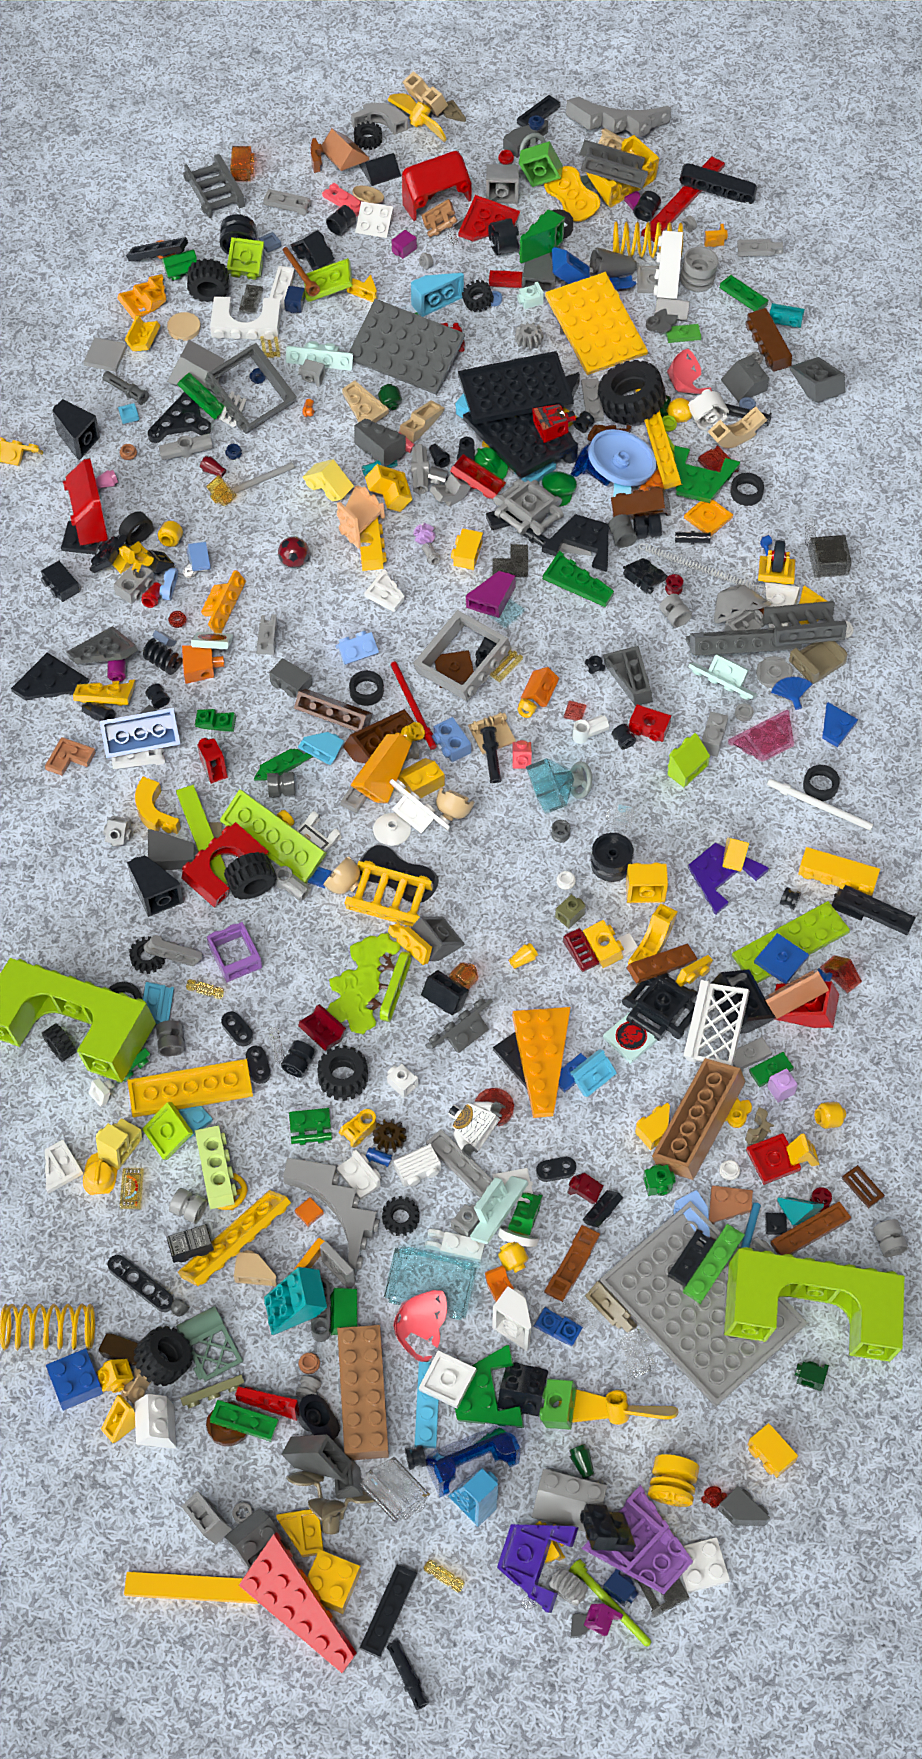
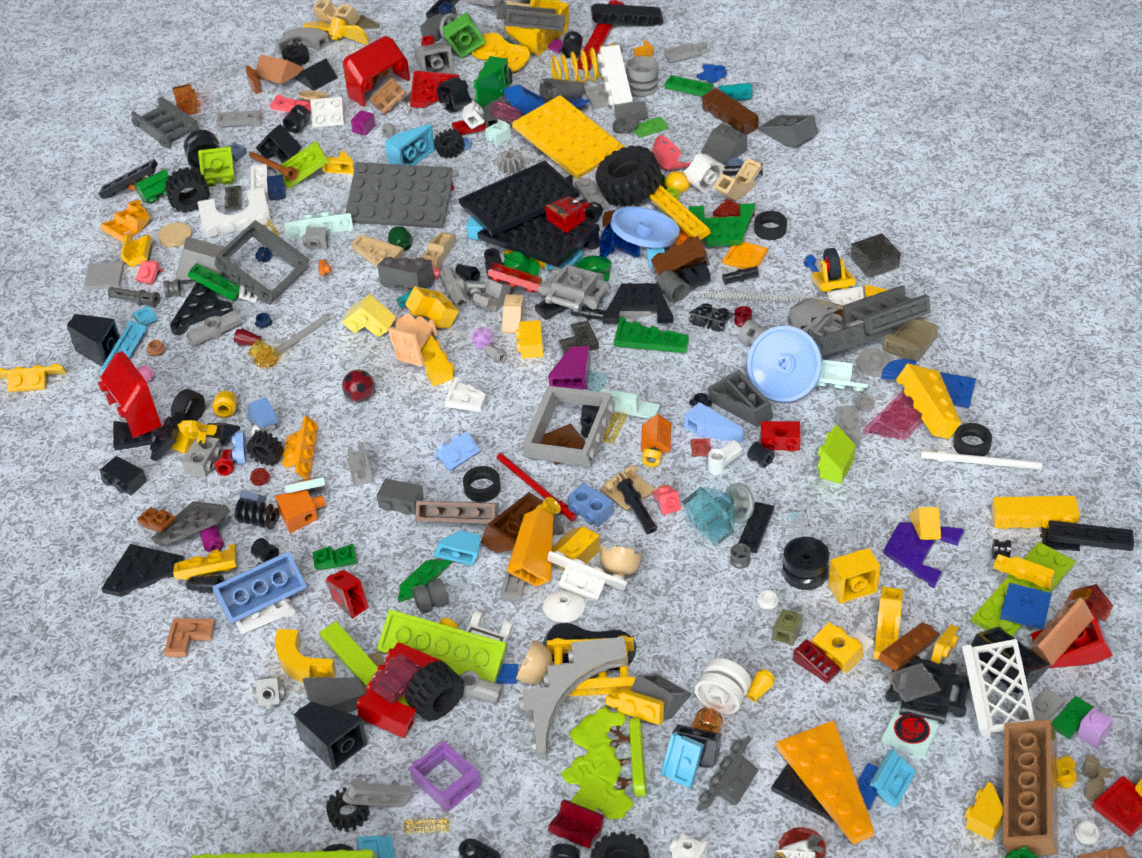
camera: 15 degrees left, 15 degrees down
(75, 634) = (155, 519): none -> dark orange slope
(101, 442) = (128, 341): none -> medium azure plate
(146, 363) = (148, 272): none -> coral bracket
(162, 389) = (172, 288): none -> dark grey wheel
(189, 593) = (265, 448): none -> black tyre
(218, 857) = (394, 678): none -> clear pink brick
(355, 901) = (585, 661): none -> light grey arch
(428, 1001) = (682, 759): none -> medium azure plate
(462, 515) = (512, 313): none -> slope
(489, 948) = (723, 686): none -> white wheel
(514, 268) = (475, 112): none -> white brick
(525, 646) = (630, 405): none -> light aqua bracket
(544, 278) = (506, 112): none -> clear pink plate
(588, 807) = (757, 526): none -> black plate
(590, 689) = (710, 424): none -> light blue slope
(646, 997) = (913, 682): none -> clear piece
(682, 653) = (784, 363): none -> light blue dish
(775, 283) = (712, 72): none -> blue plate
(796, 925) = (1025, 570): none -> yellow hinge
(801, 729) = (930, 399): none -> yellow wedge

